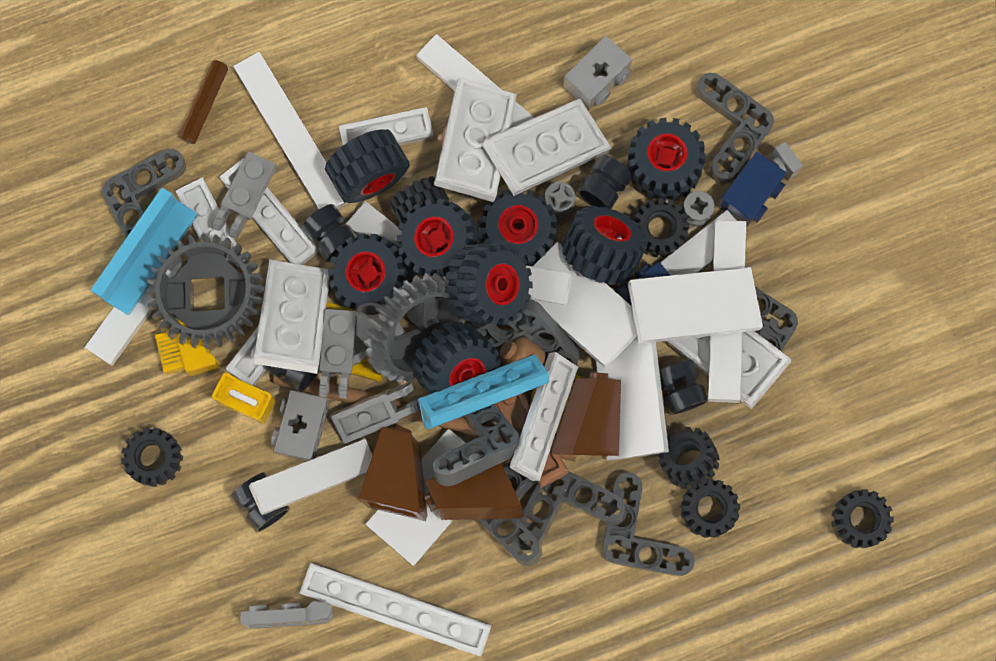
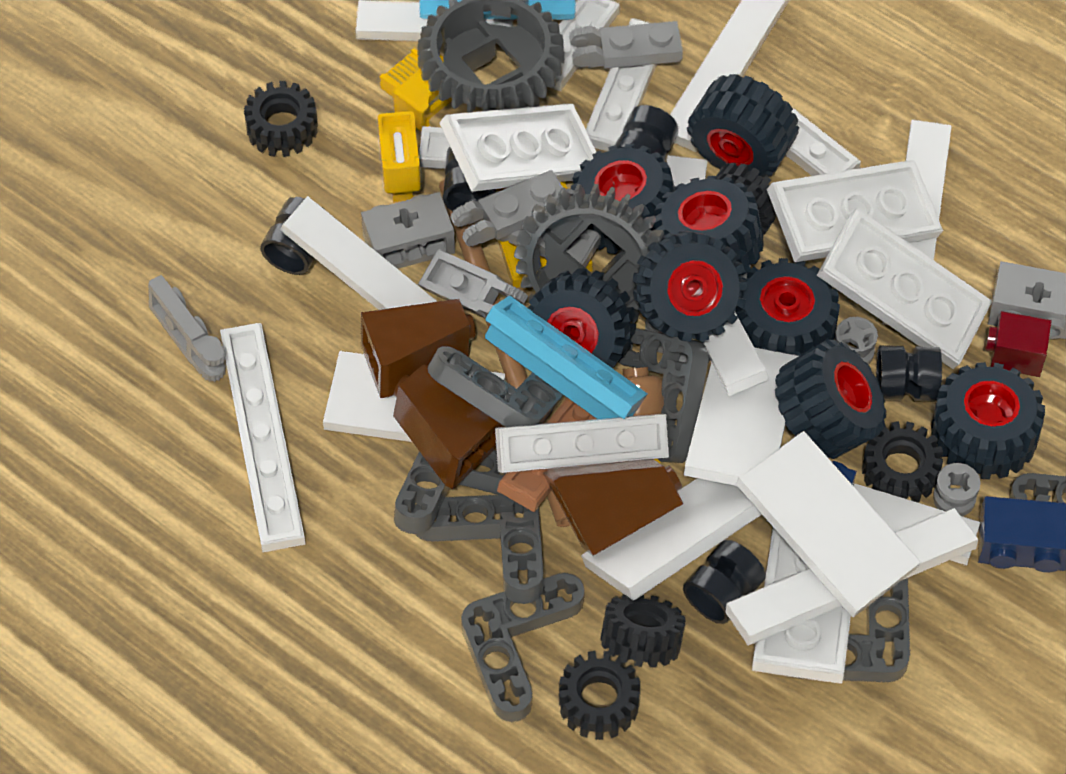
camera: 60 degrees right, 20 degrees down
(621, 103) = (1019, 343): none -> dark red brick

